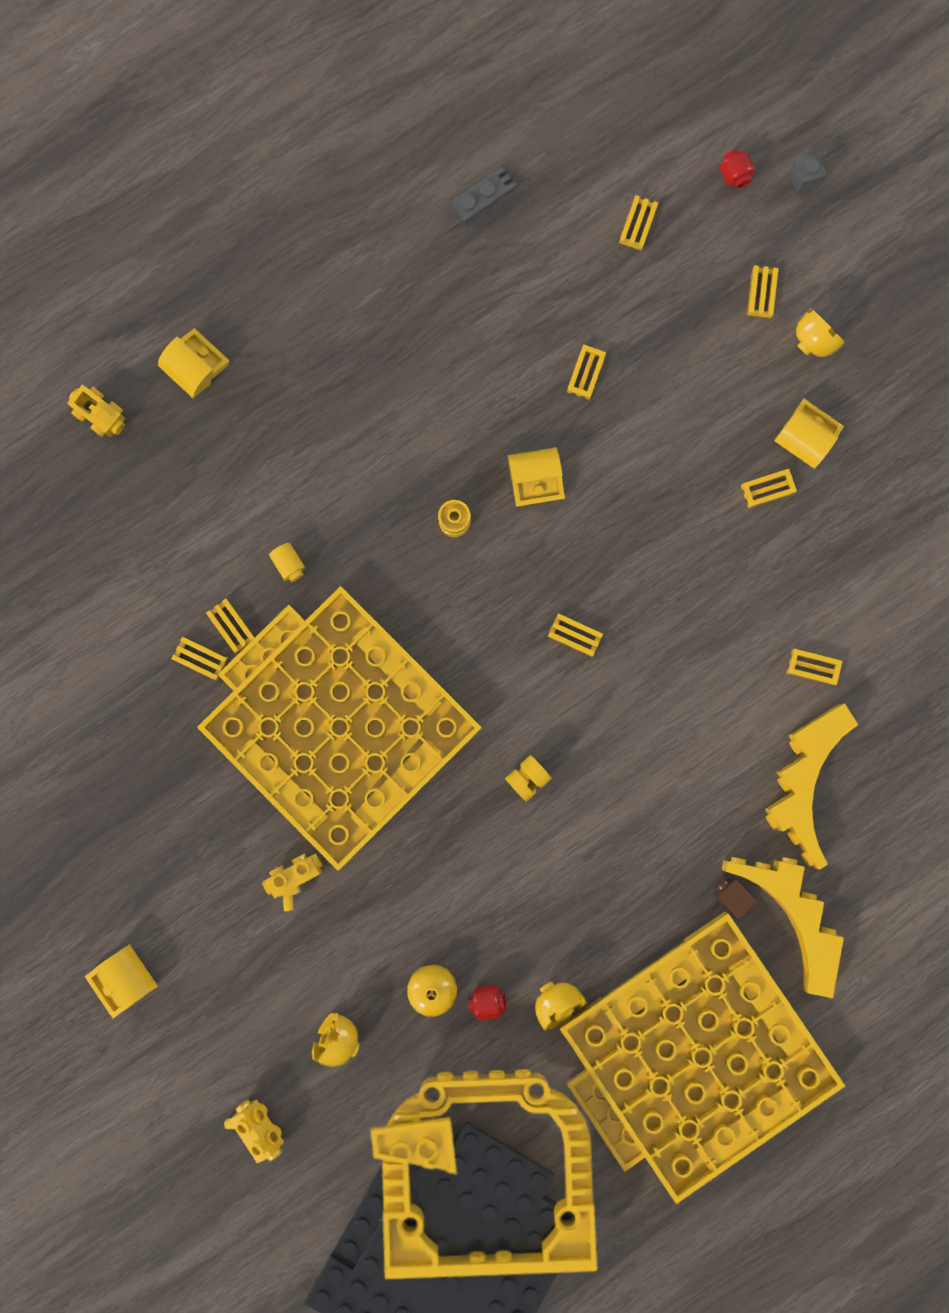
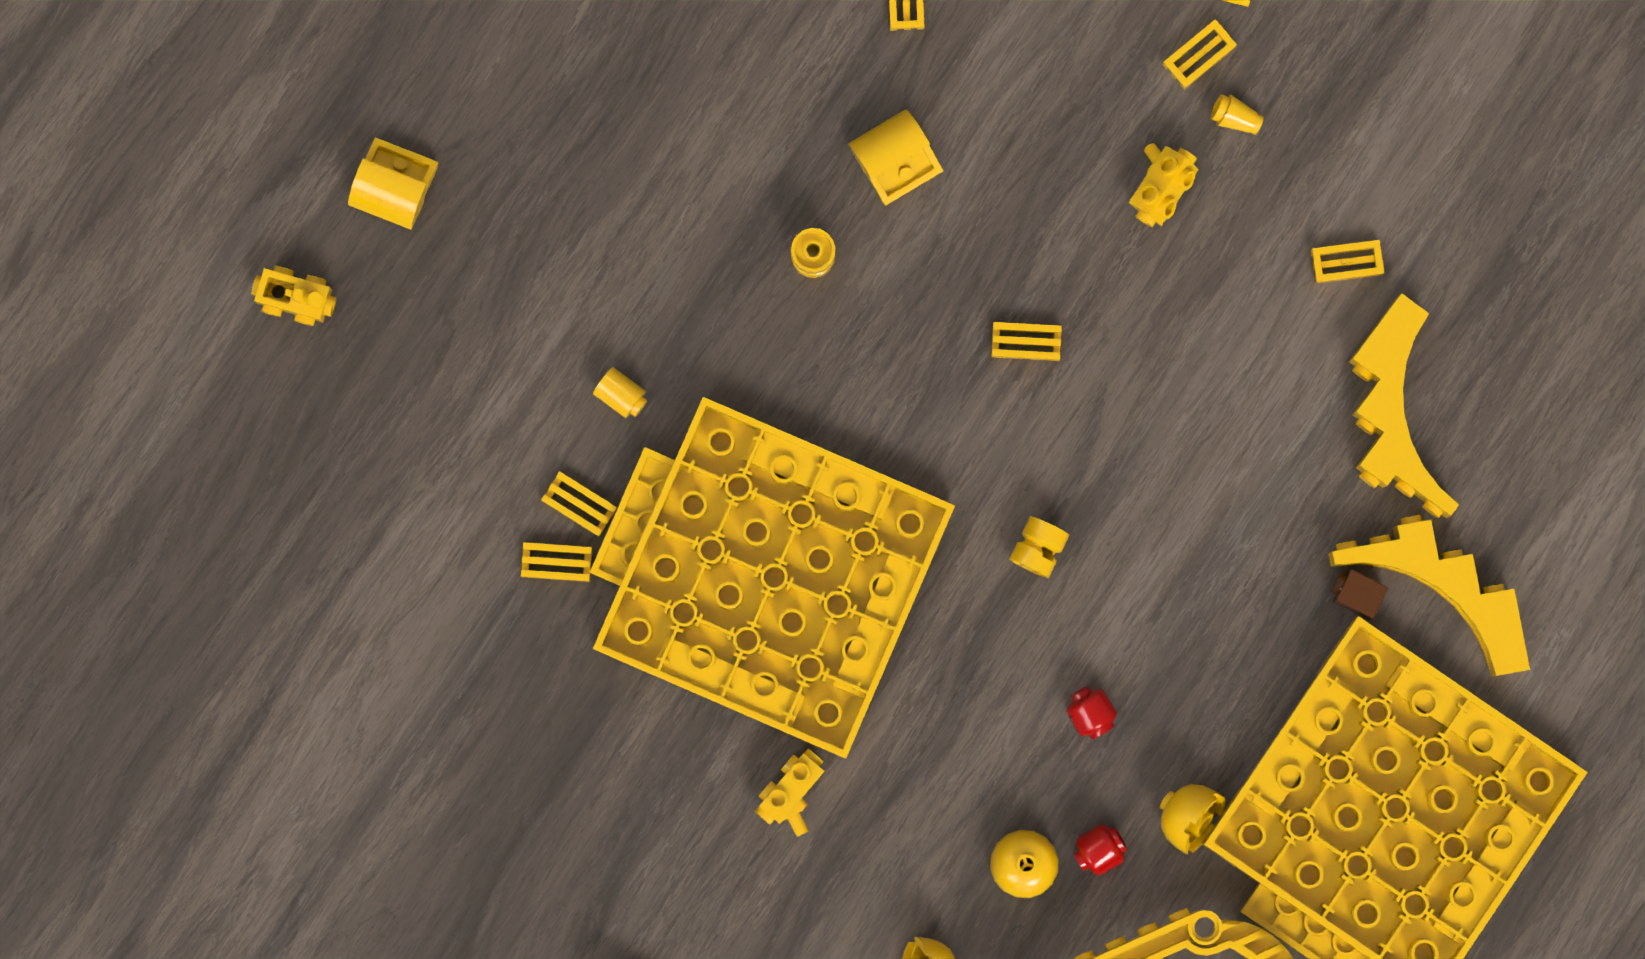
camera: 25 degrees left, 0 degrees up
(519, 905) = (1091, 712): none -> red head
(710, 565) = (1164, 184): none -> yellow brick
(777, 538) = (1236, 115): none -> yellow cone

